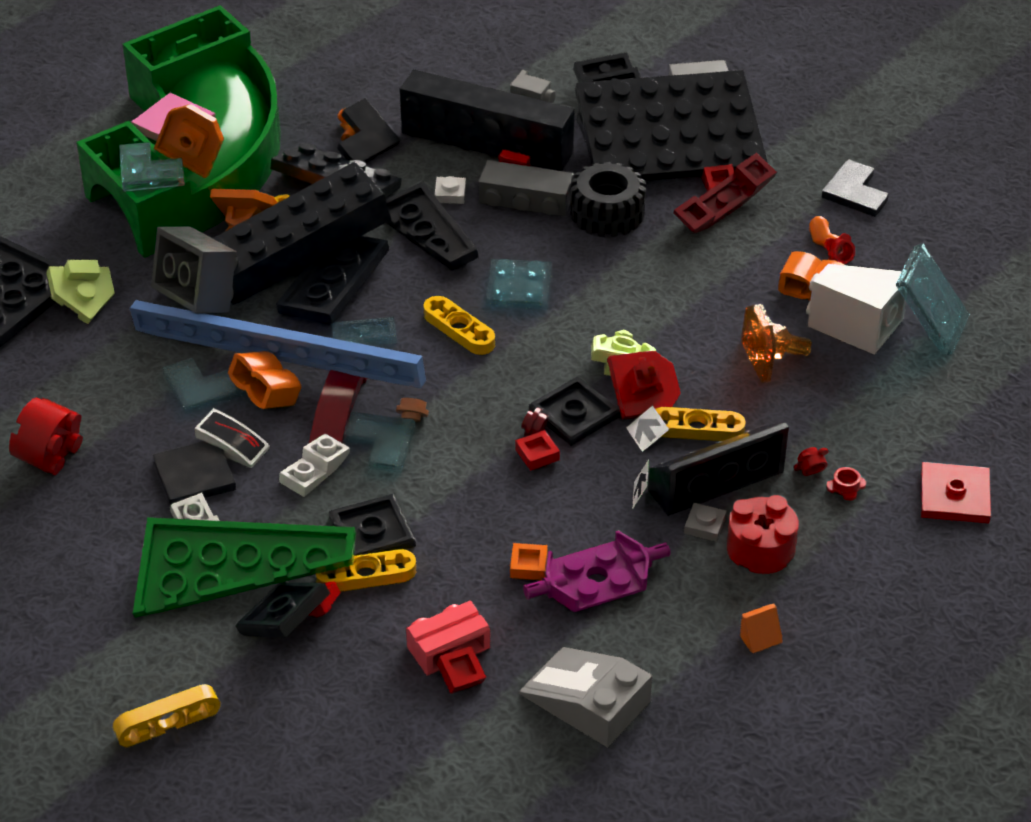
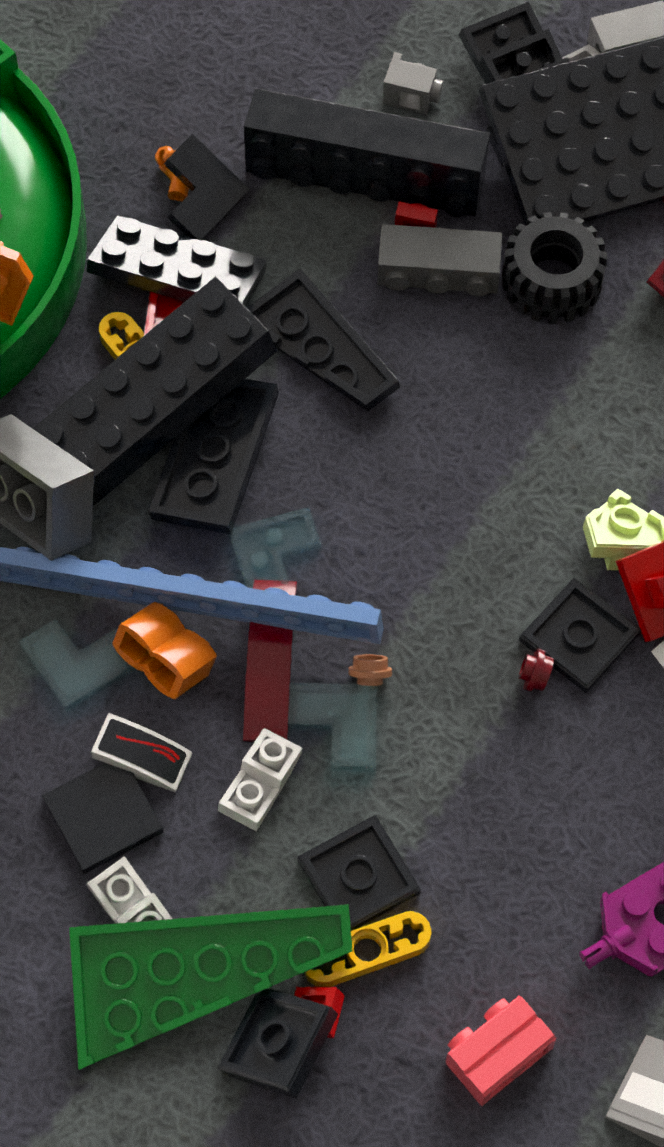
camera: 10 degrees left, 20 degrees up
(240, 204) = (70, 364): orange piece -> none
(450, 189) = (335, 270): white plate -> none
(454, 314) = (396, 493): yellow beam -> none
(461, 669) = (527, 1099): red plate -> none
(519, 284) = (462, 425): clear light blue plate -> none
(528, 561) = (576, 904): orange plate -> none
(537, 450) = (548, 714): red plate -> none

